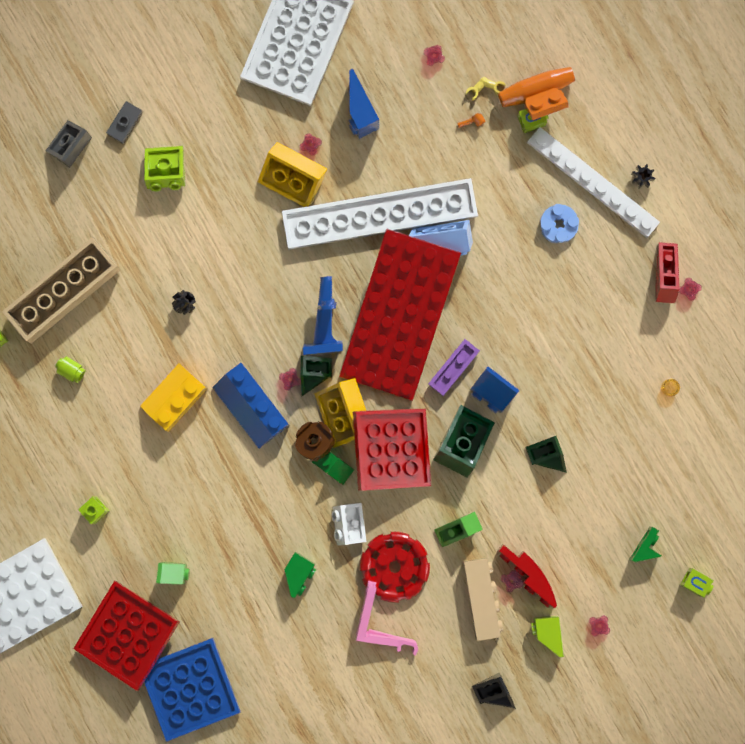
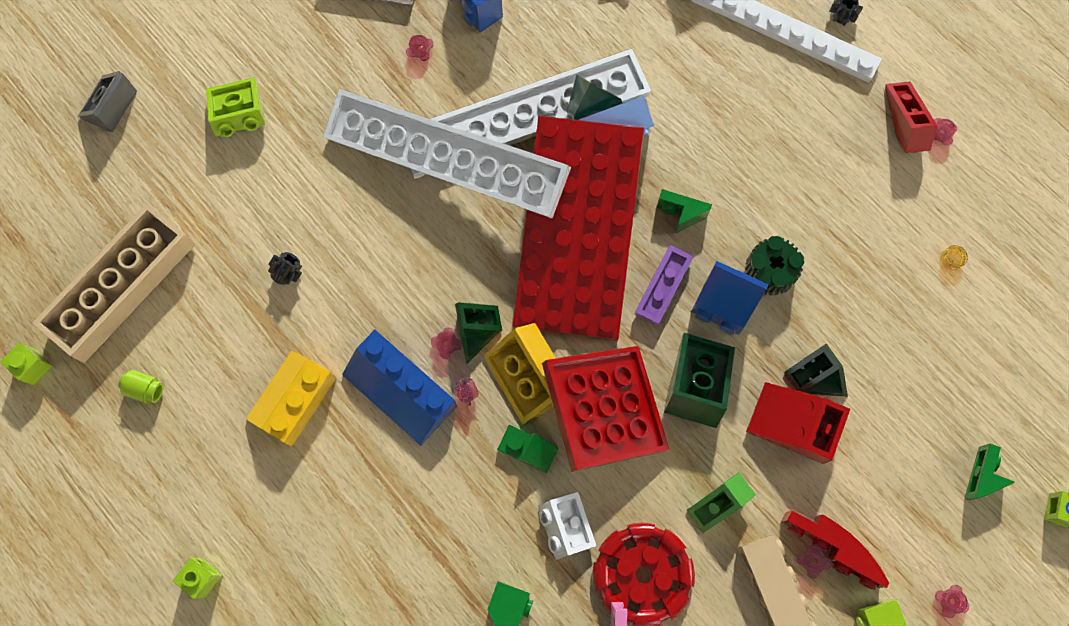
camera: 15 degrees left, 10 degrees down
(124, 122) = (176, 64): dark grey plate -> none
(291, 175) = (402, 83): yellow slope -> none
(297, 417) = (466, 390): none -> clear pink plate
(313, 240) = (448, 153): none -> white plate
(321, 448) = (502, 430): reddish brown plate -> none
(323, 337) = (482, 279): blue piece -> none
(429, 215) = (589, 99): none -> dark green slope
(486, 315) = (690, 209): none -> green slope
(524, 484) = (798, 422): none -> red slope
(539, 359) = (783, 257): none -> dark green brick
(561, 234) = (755, 71): light blue plate -> none

